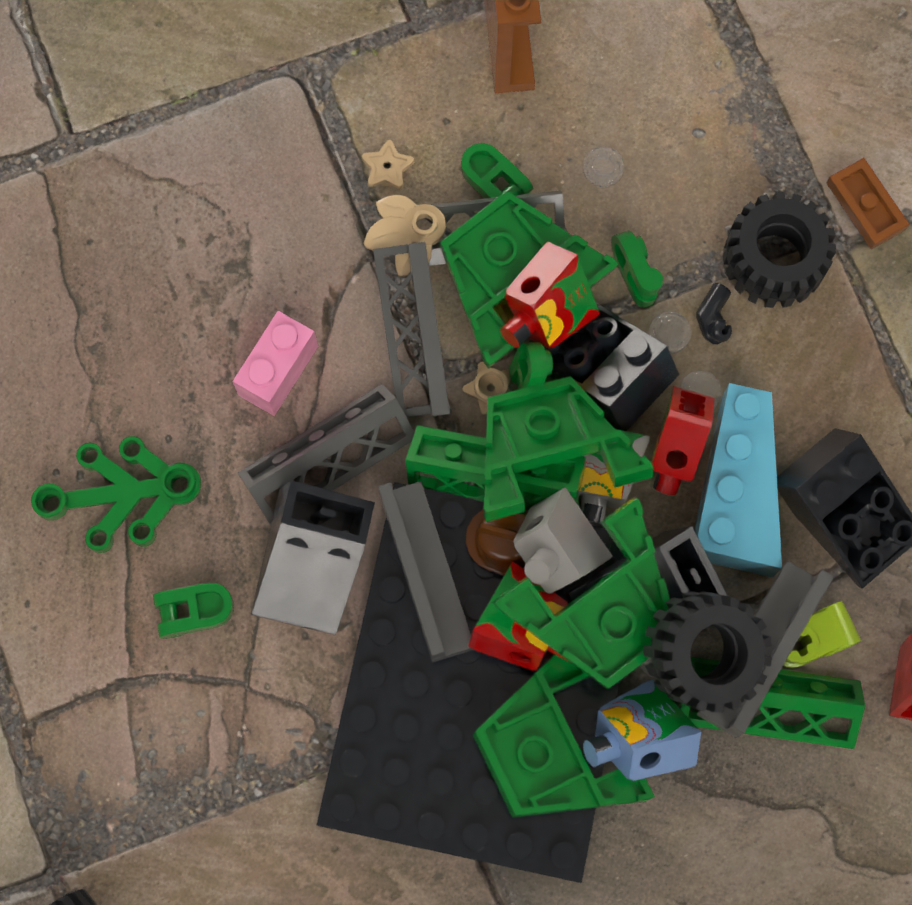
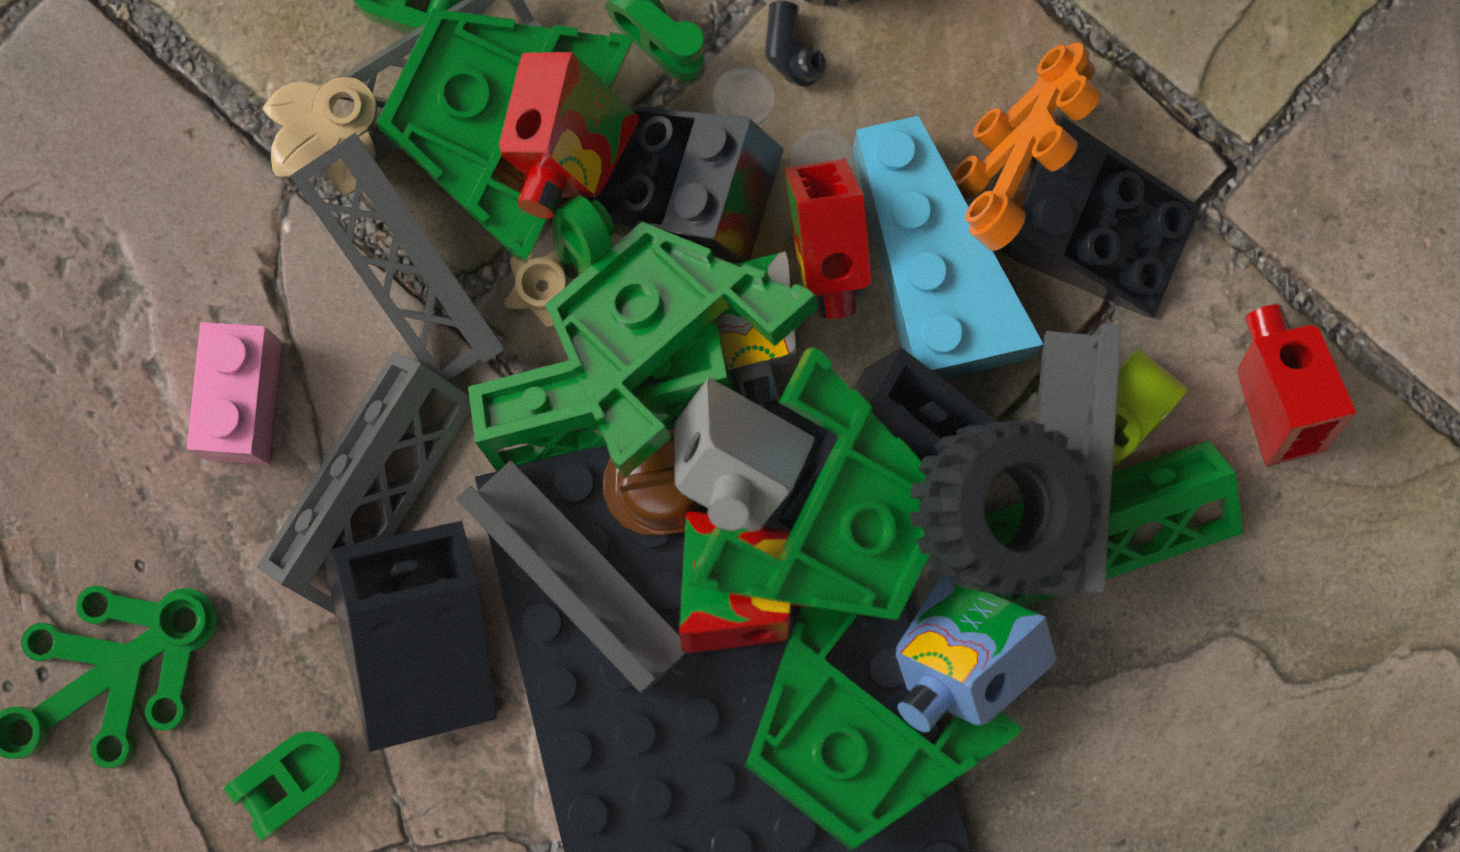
camera: 25 degrees left, 5 degrees up
(391, 176) = (257, 67): tan plate -> none
(832, 435) = (1021, 134): none -> orange plant

